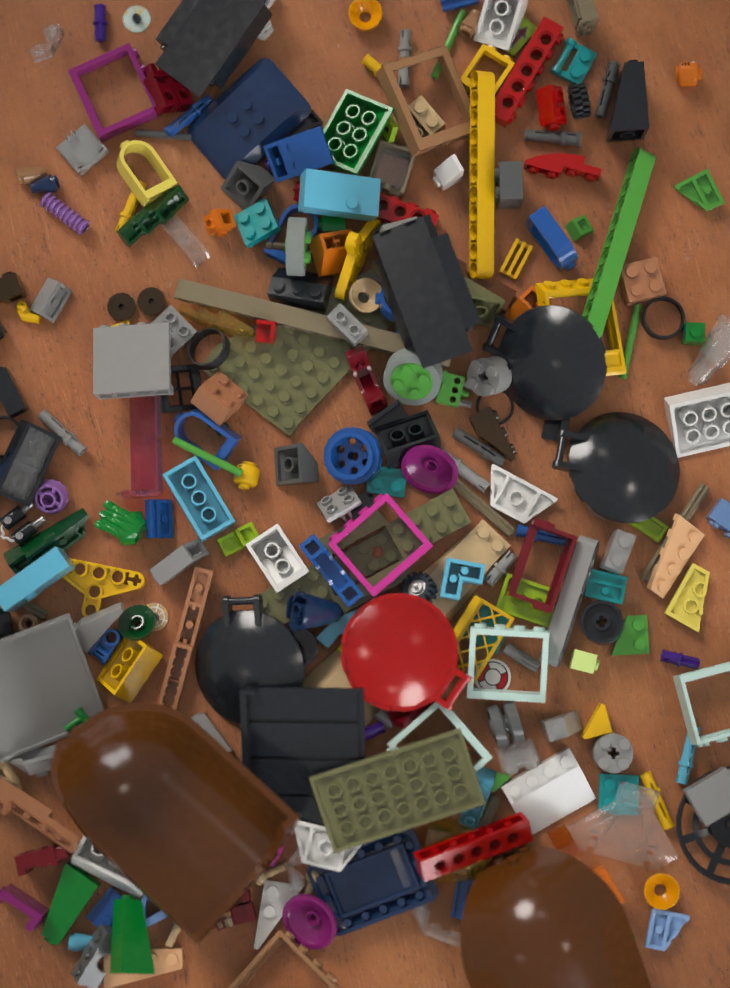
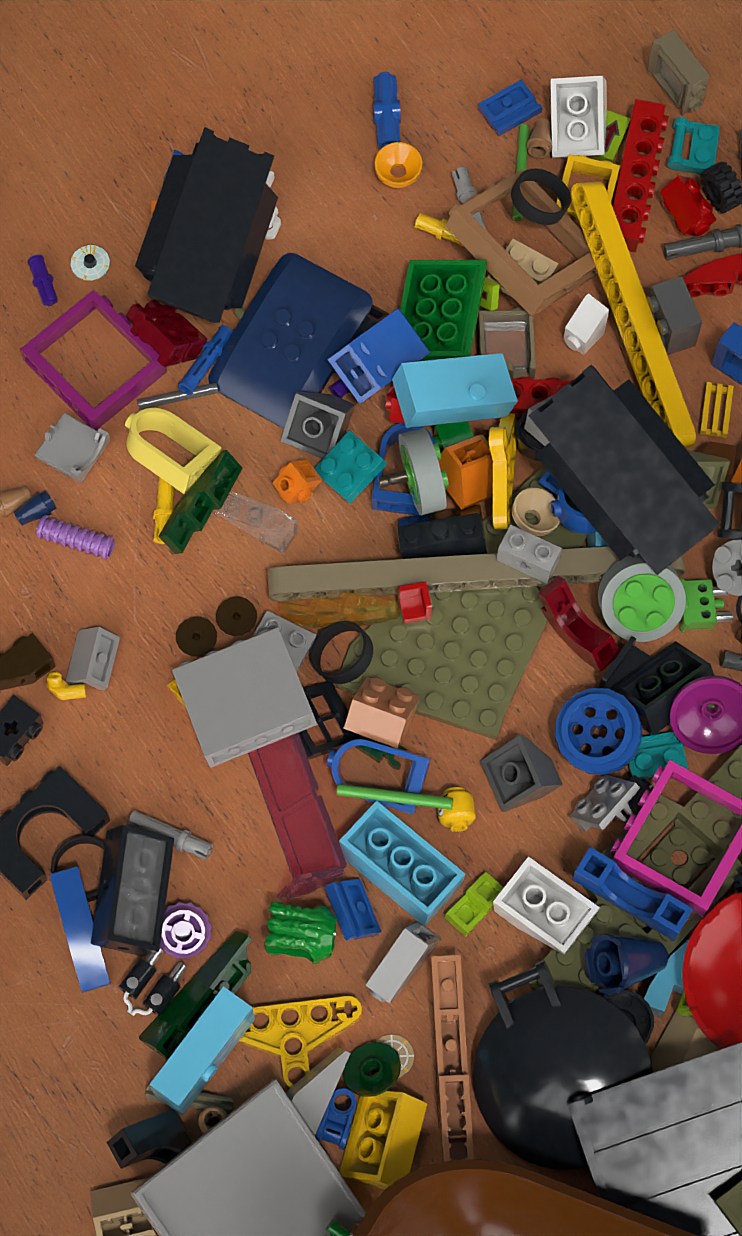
camera: 25 degrees left, 15 degrees down
(460, 59) = (551, 181): none -> black tyre

